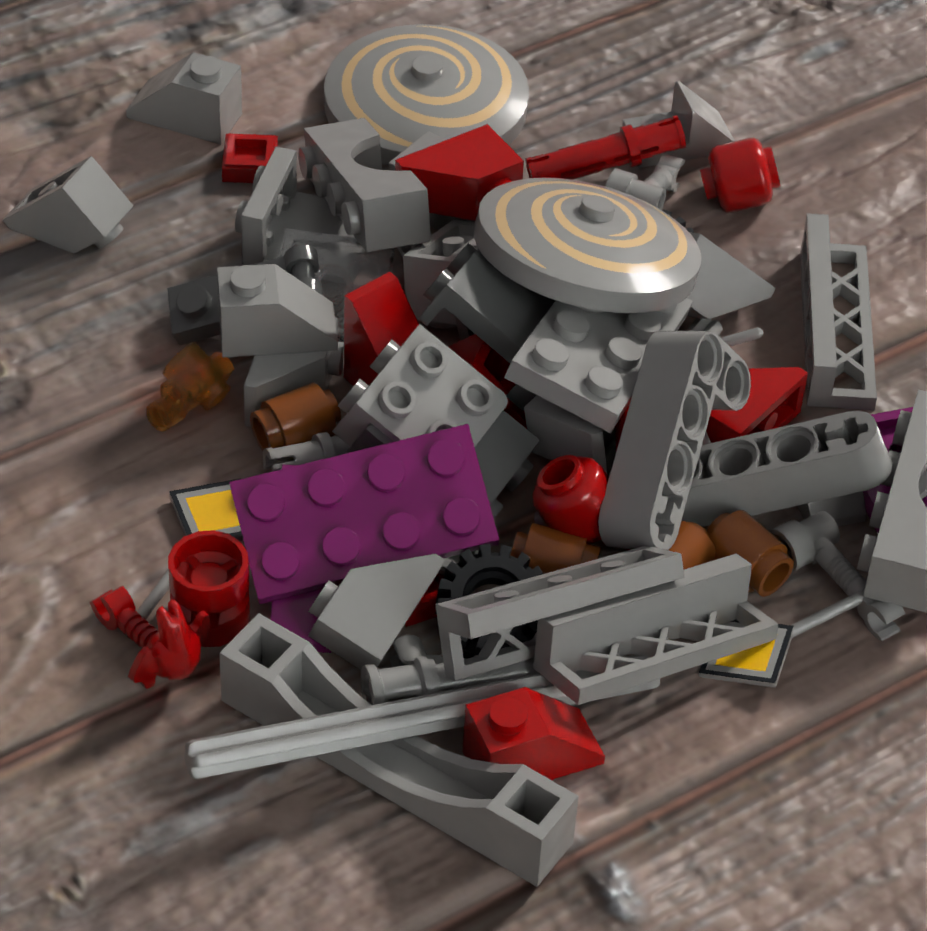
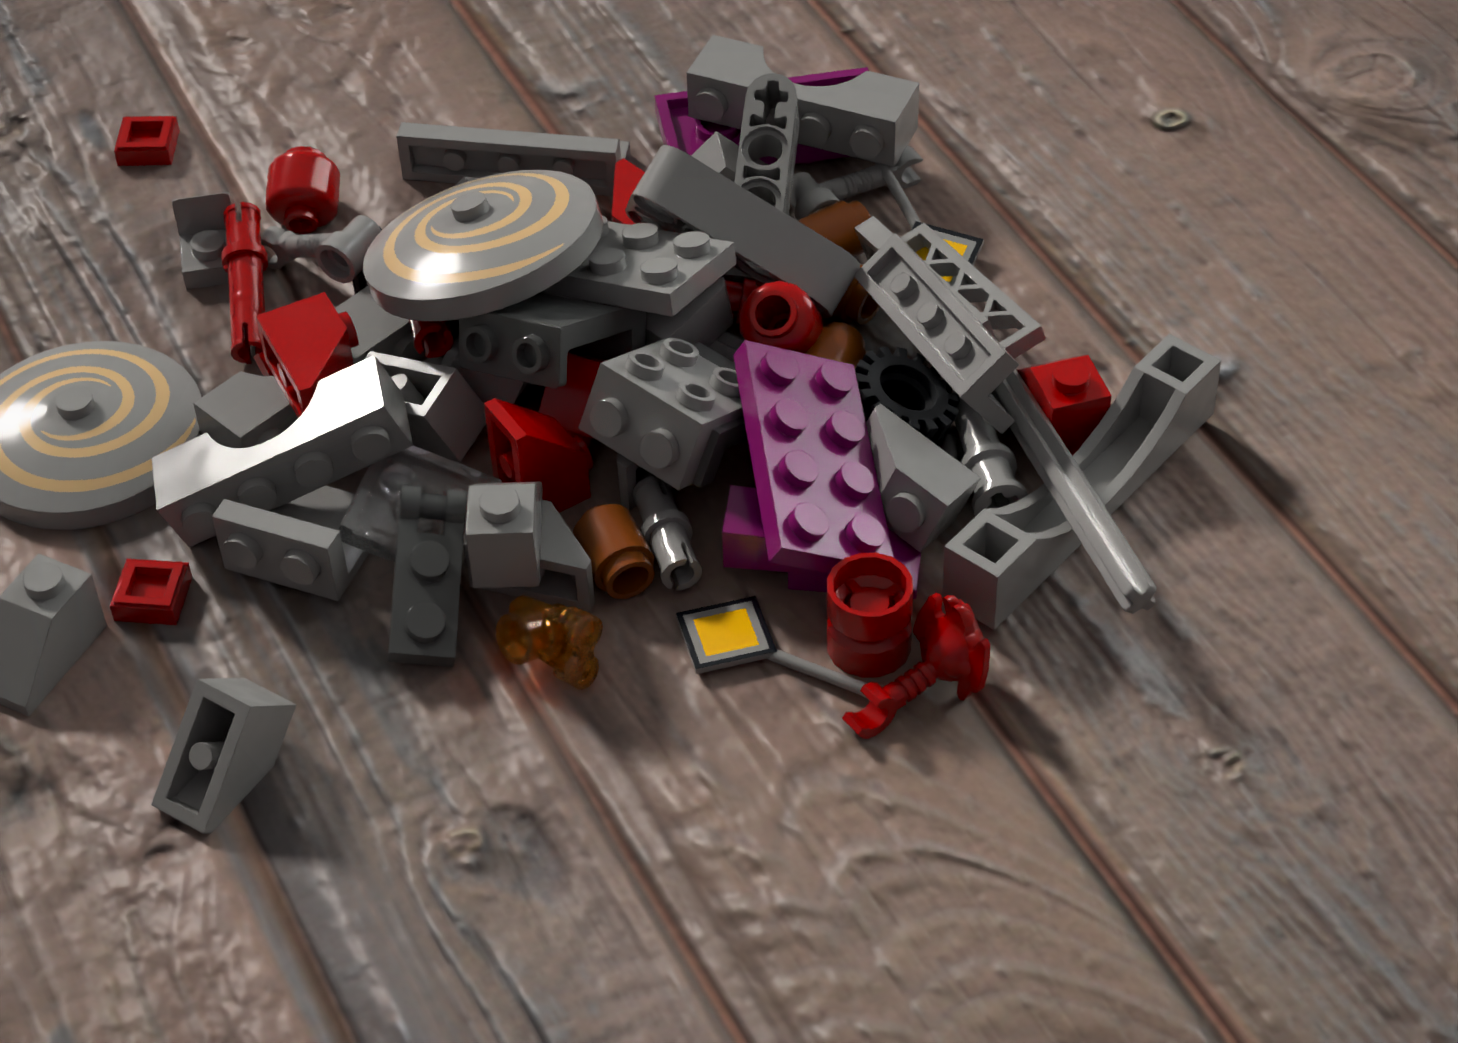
camera: 80 degrees left, 0 degrees up
(808, 80) = (147, 140): none -> red tile

